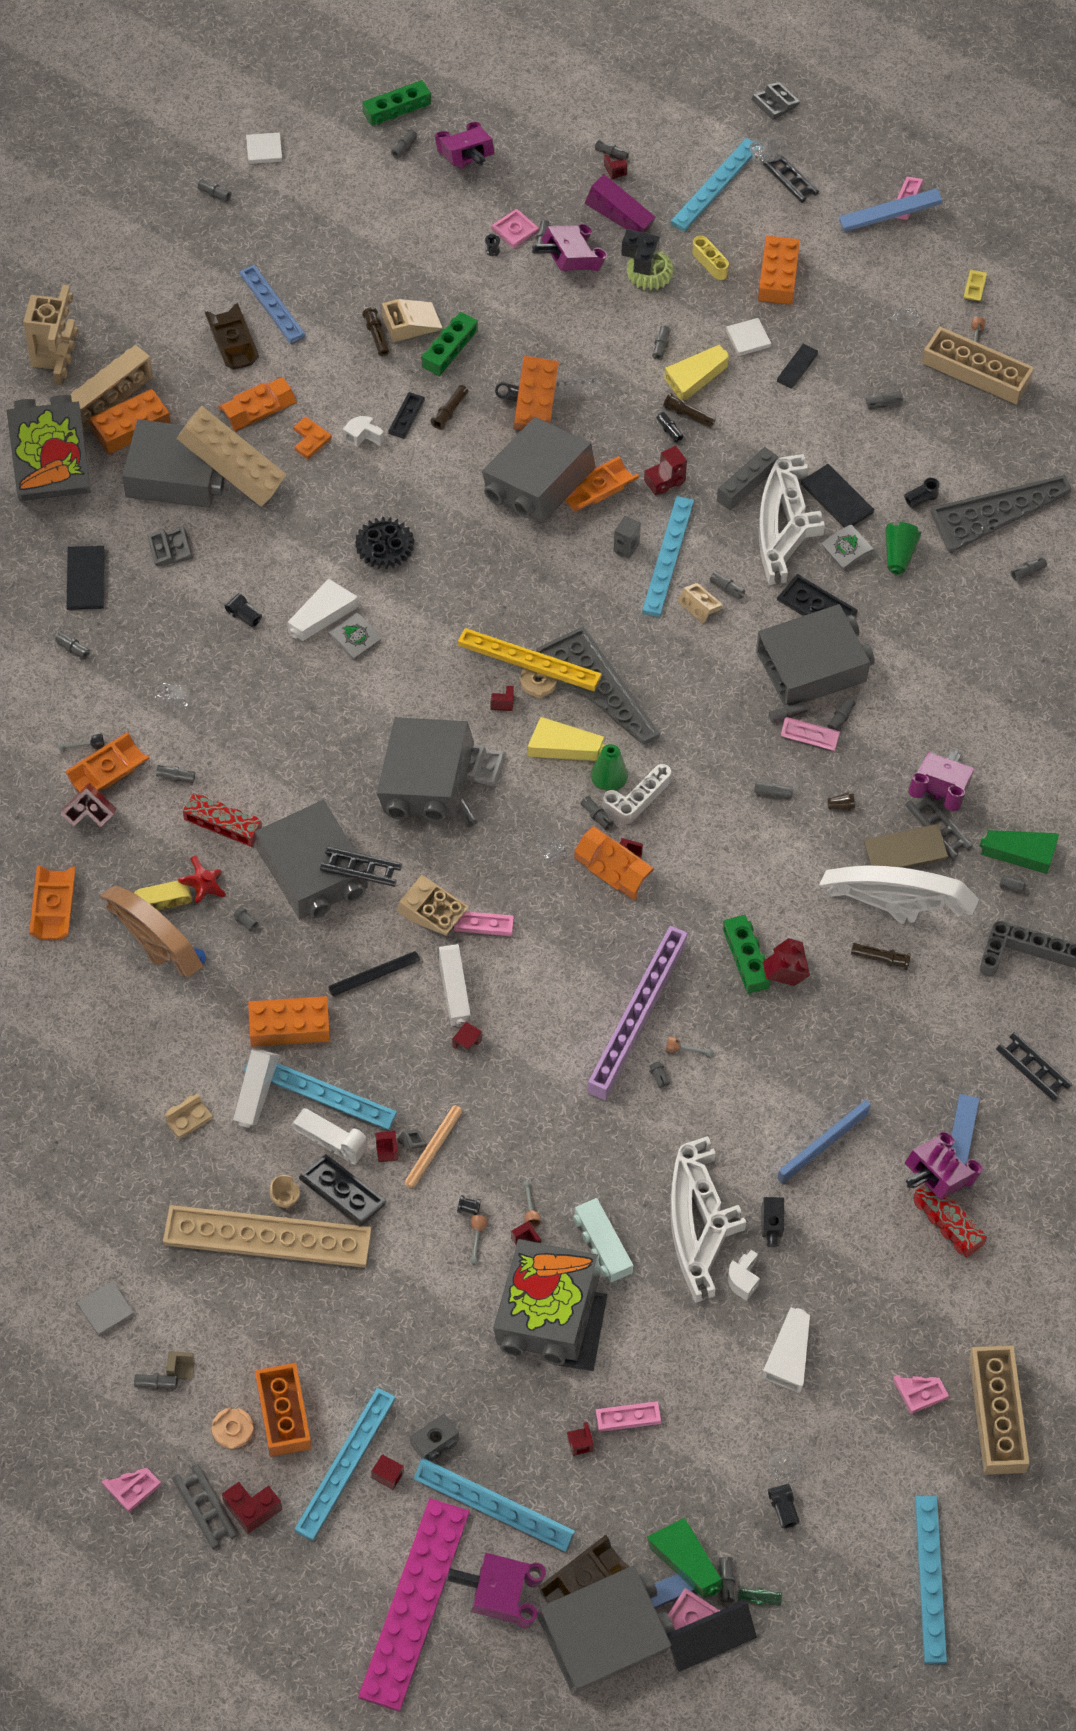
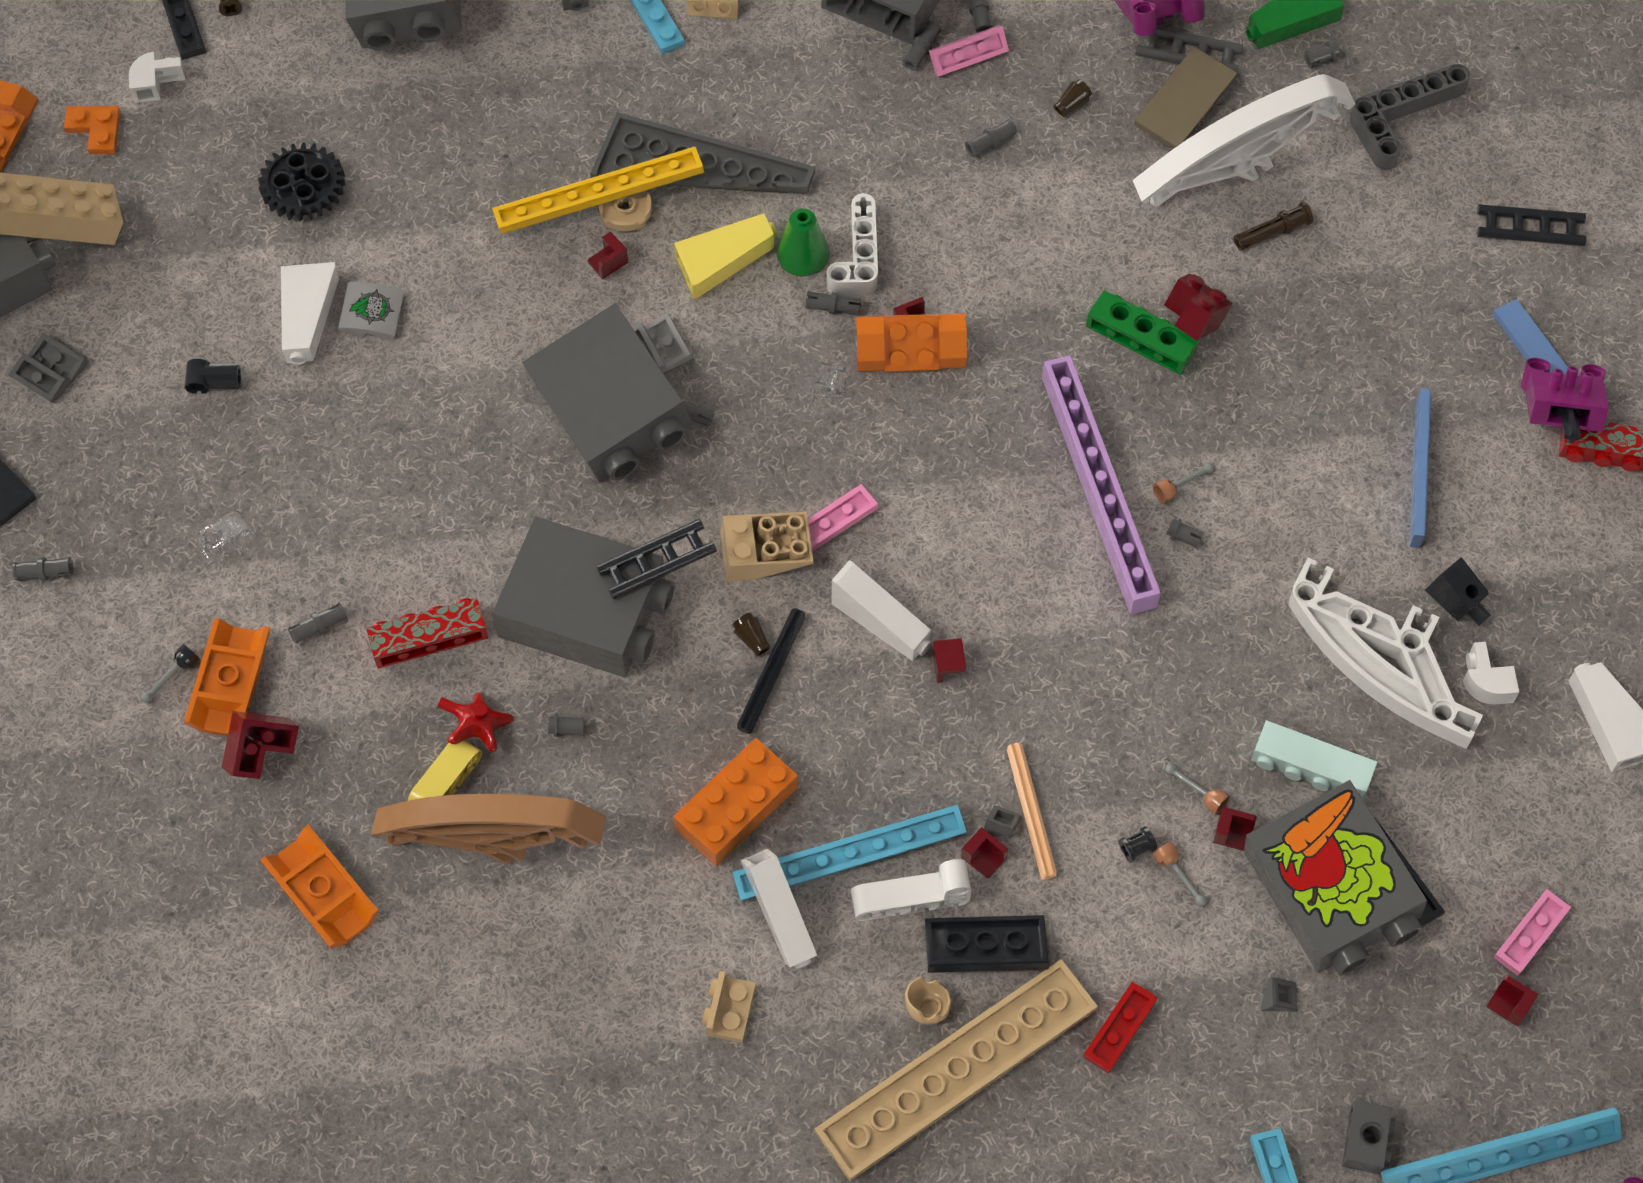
camera: 40 degrees left, 5 degrees up
(367, 1284) = (1120, 1027): none -> red plate
(382, 944) = (751, 633): none -> dark brown cone
(465, 1338) = (1279, 996): none -> dark grey slope

